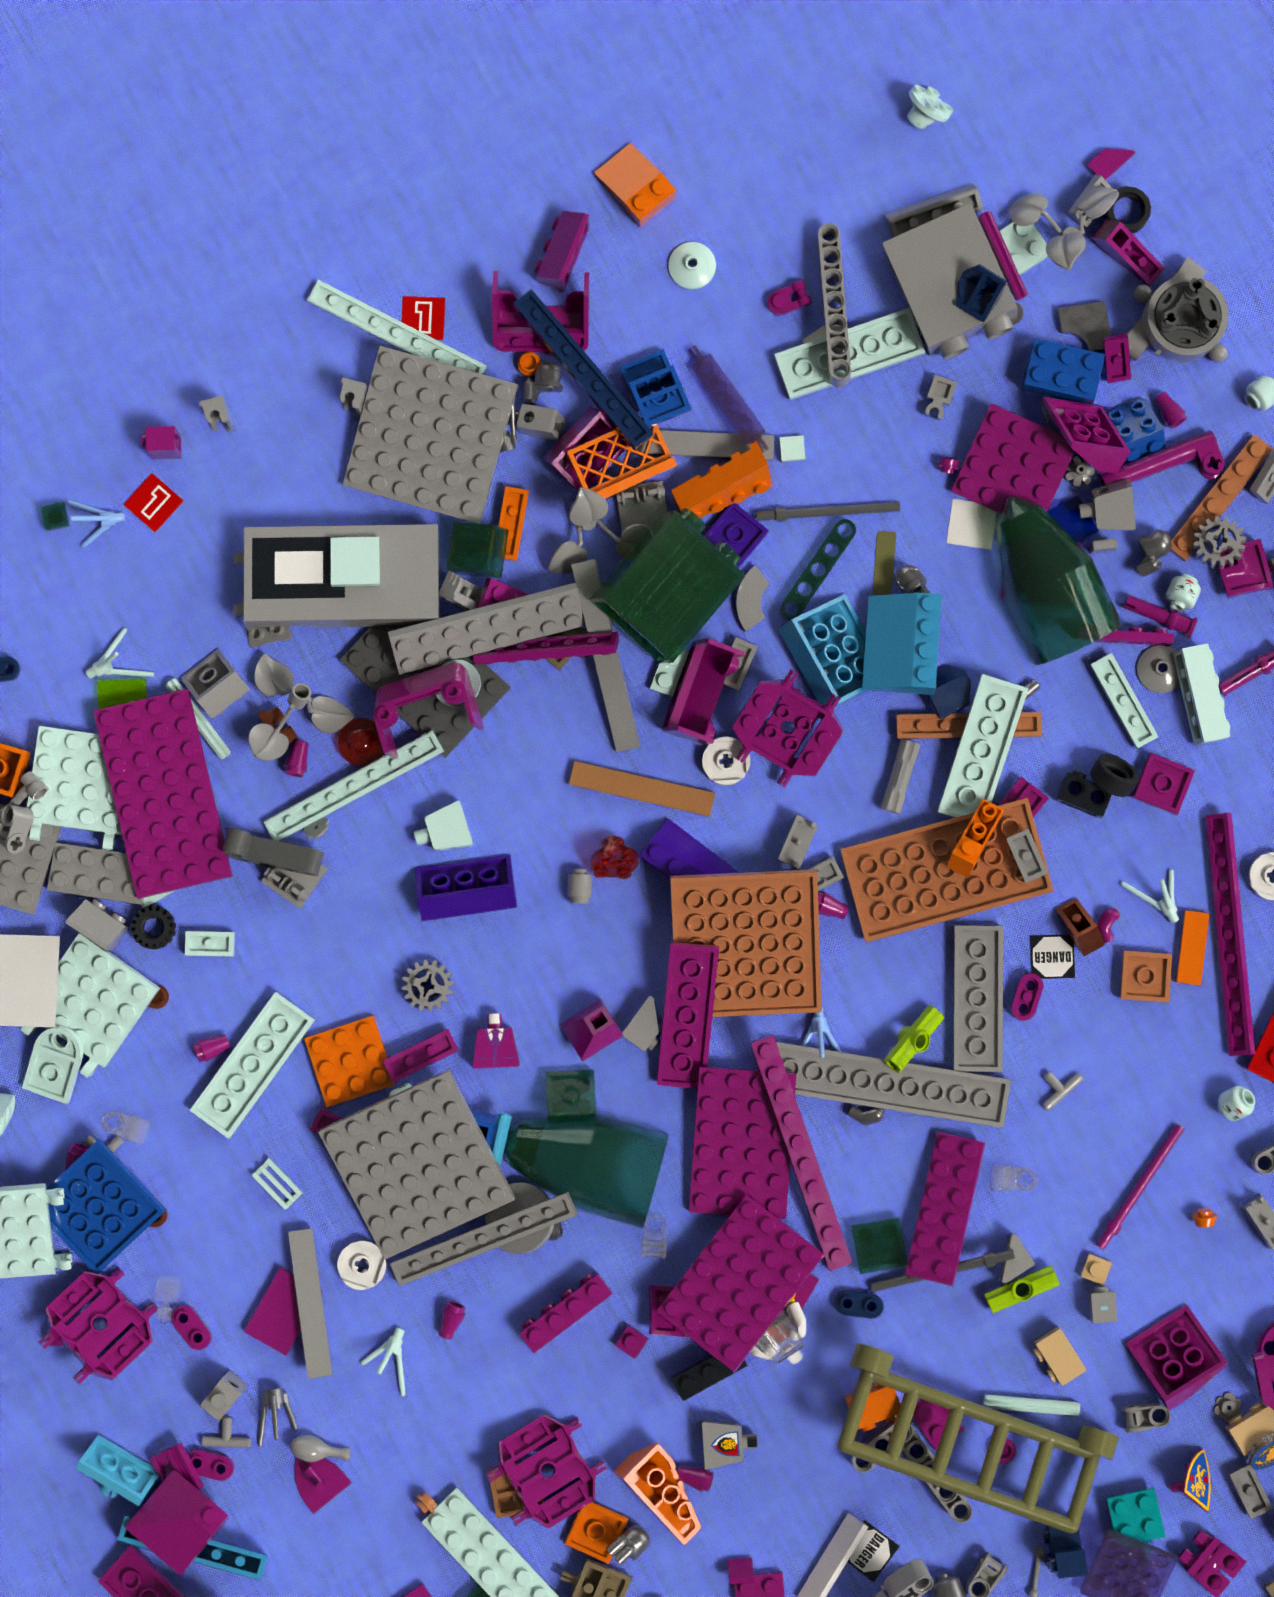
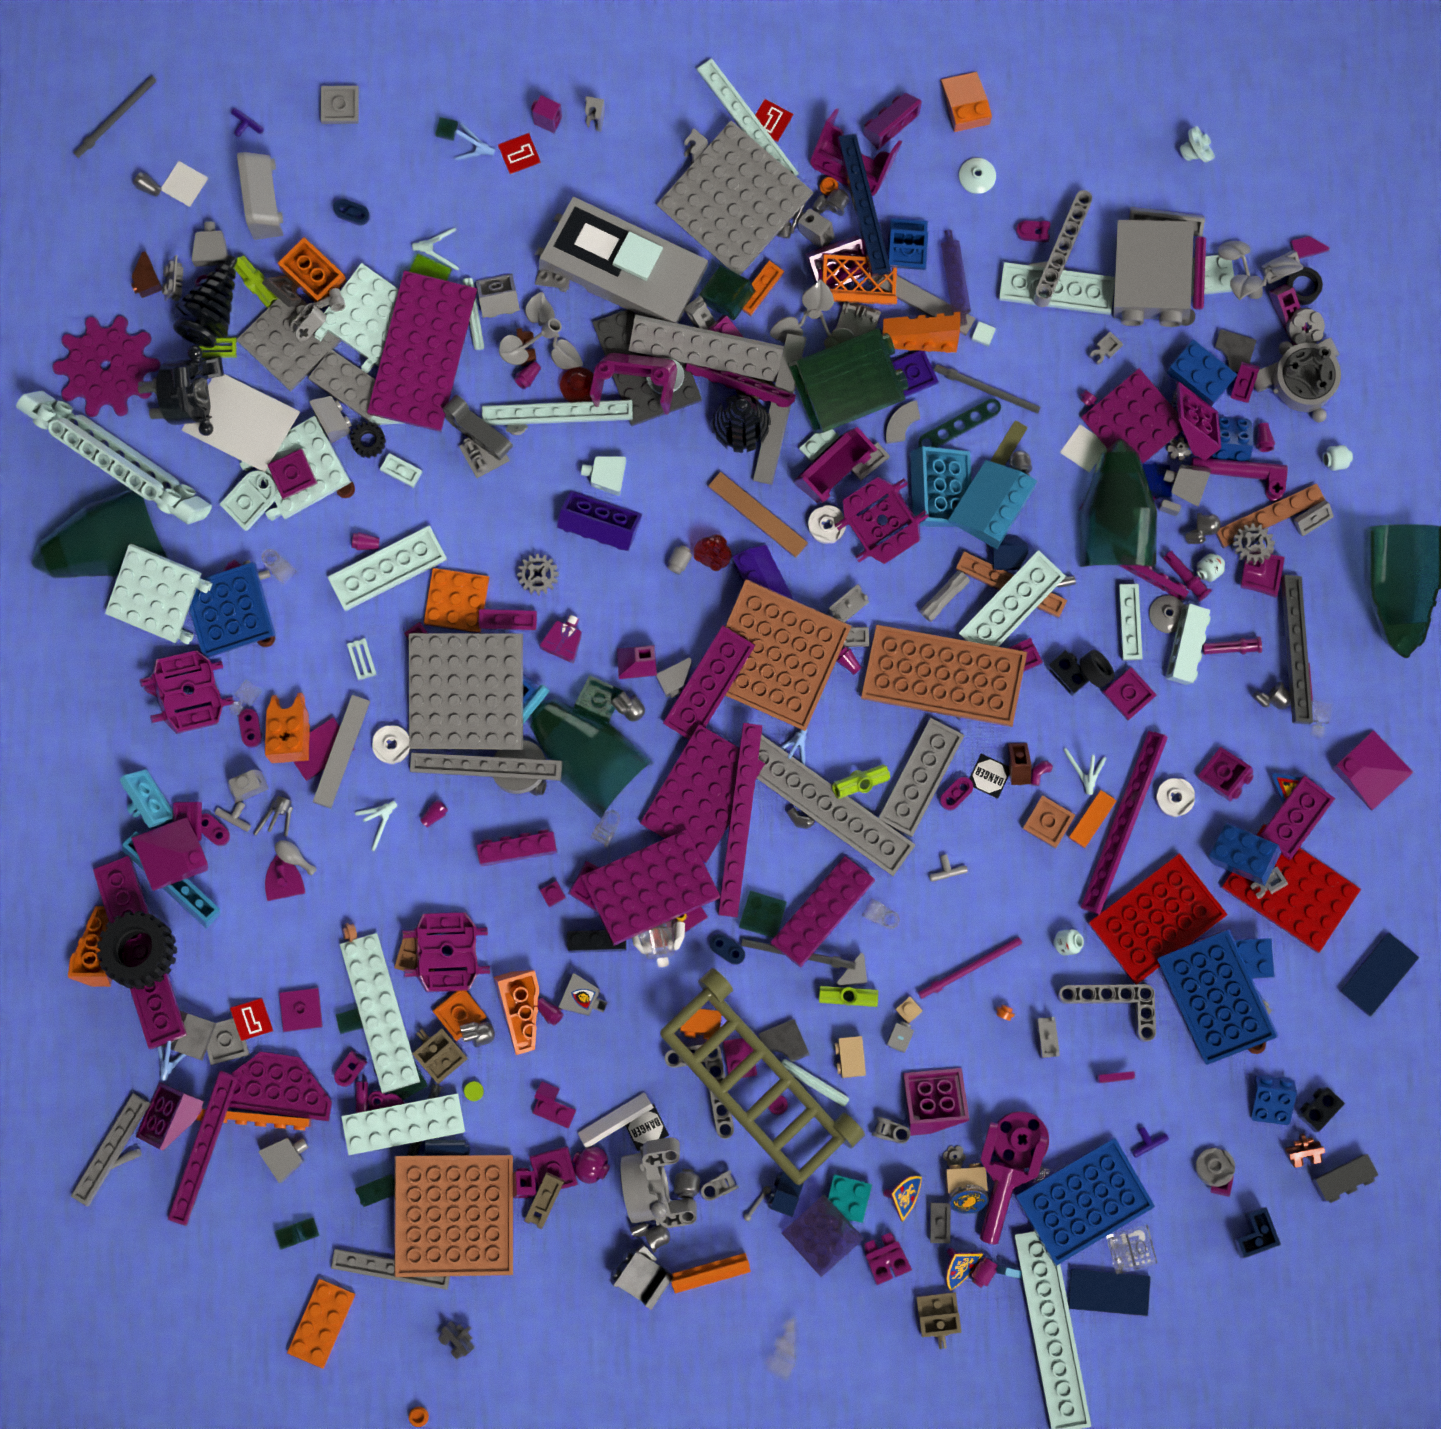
camera: 25 degrees right, 5 degrees down
(88, 1014) = (292, 474): none -> magenta plate
(231, 1304) = (287, 731): none -> orange brick
(570, 694) = (741, 423): none -> black plant
(610, 1086) = (630, 707): none -> flat silver piece
(975, 838) = (974, 661): orange slope -> none
(976, 1373) = (786, 1040): none -> flat silver tile
(979, 291) = (1169, 284): dark blue slope -> none
(1027, 856) = (1005, 691): light grey plate -> none
(1166, 259) = (1298, 320): none -> light grey plate

